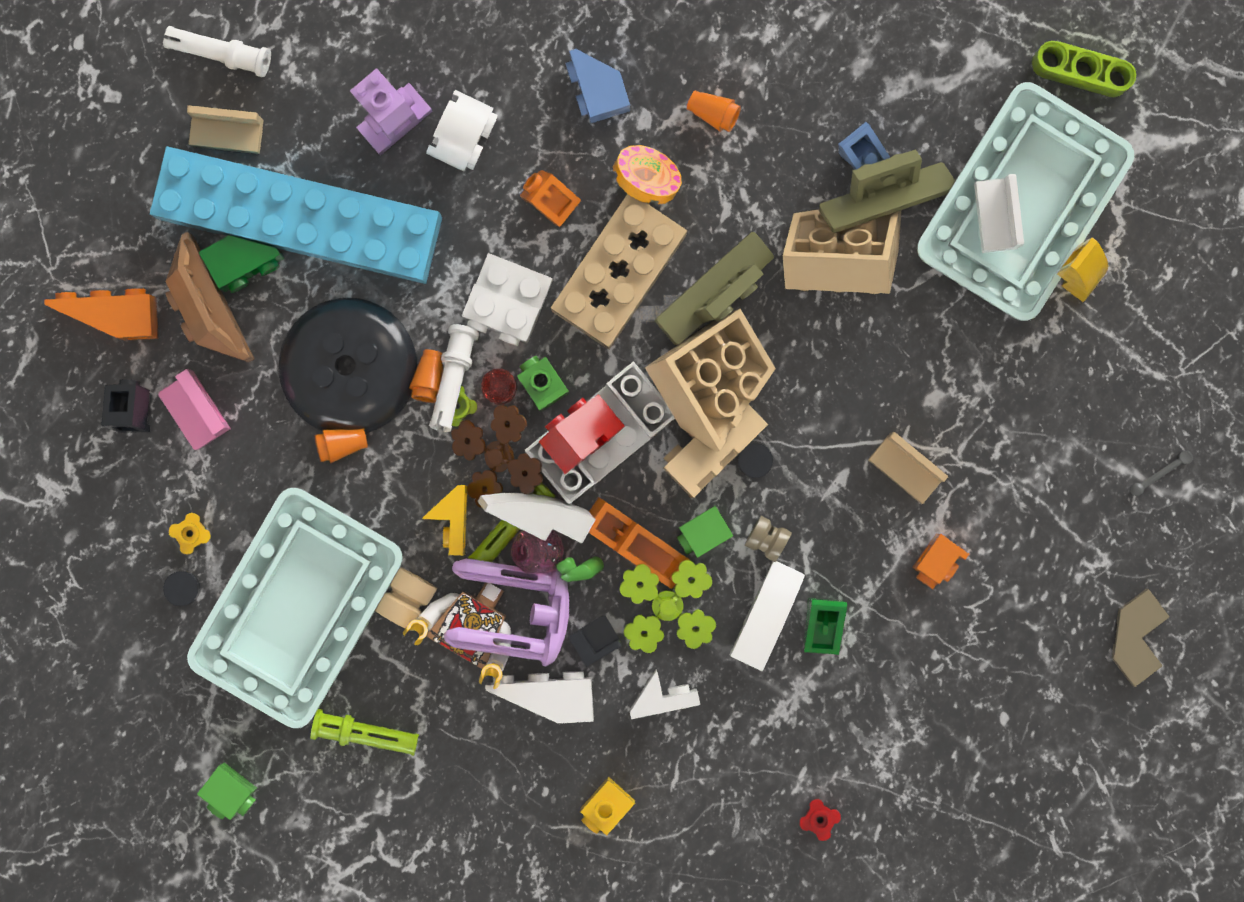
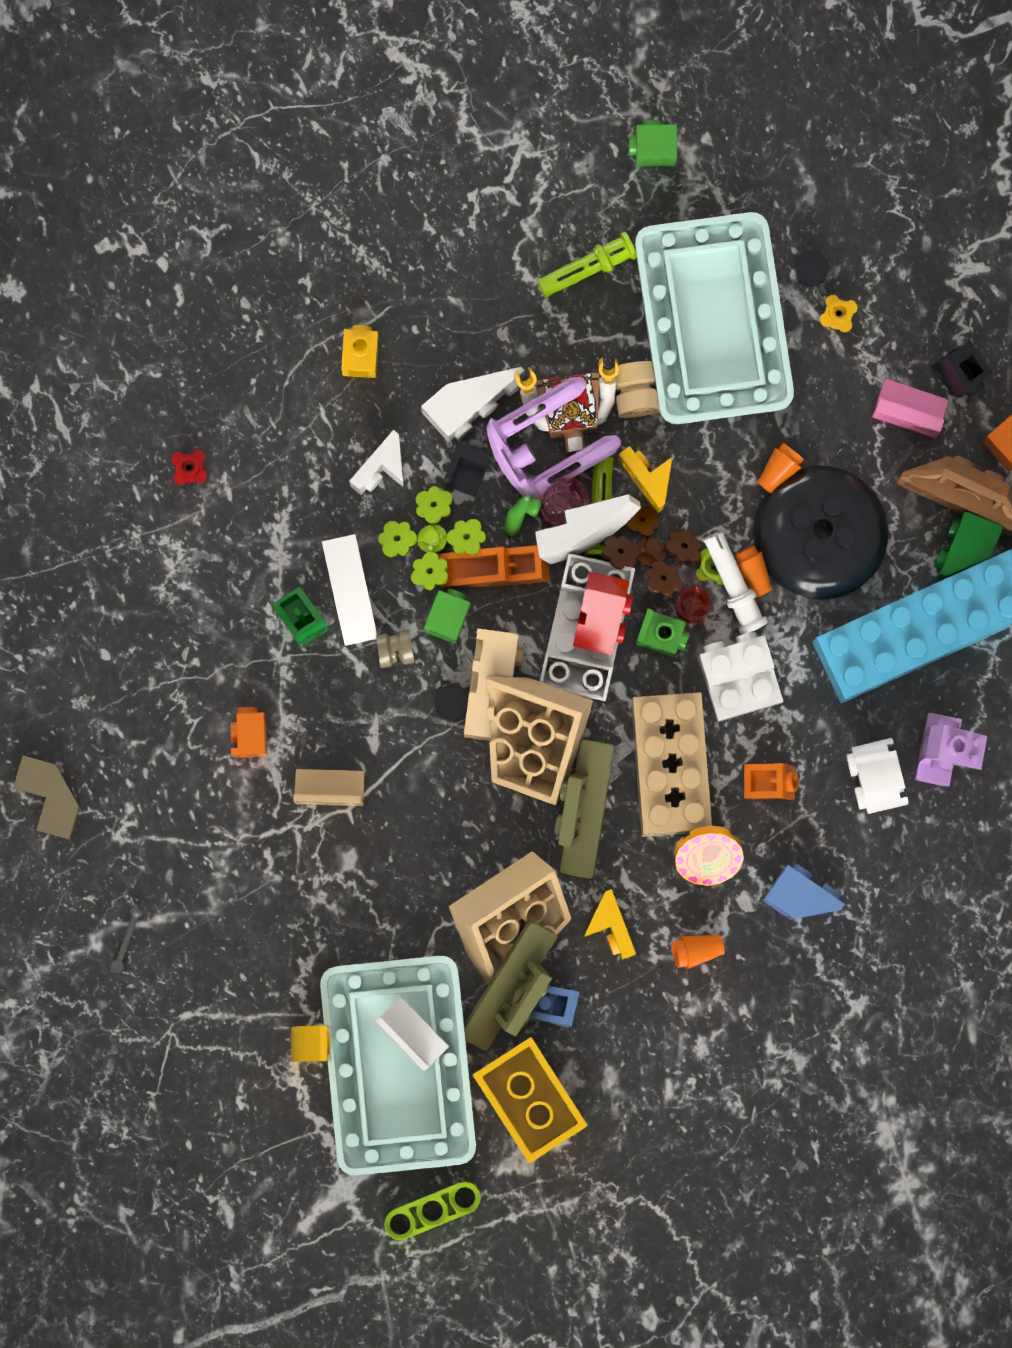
camera: 135 degrees right, 5 degrees down
(766, 190) = (609, 916): none -> yellow slope
(941, 93) = (530, 1100): none -> yellow brick

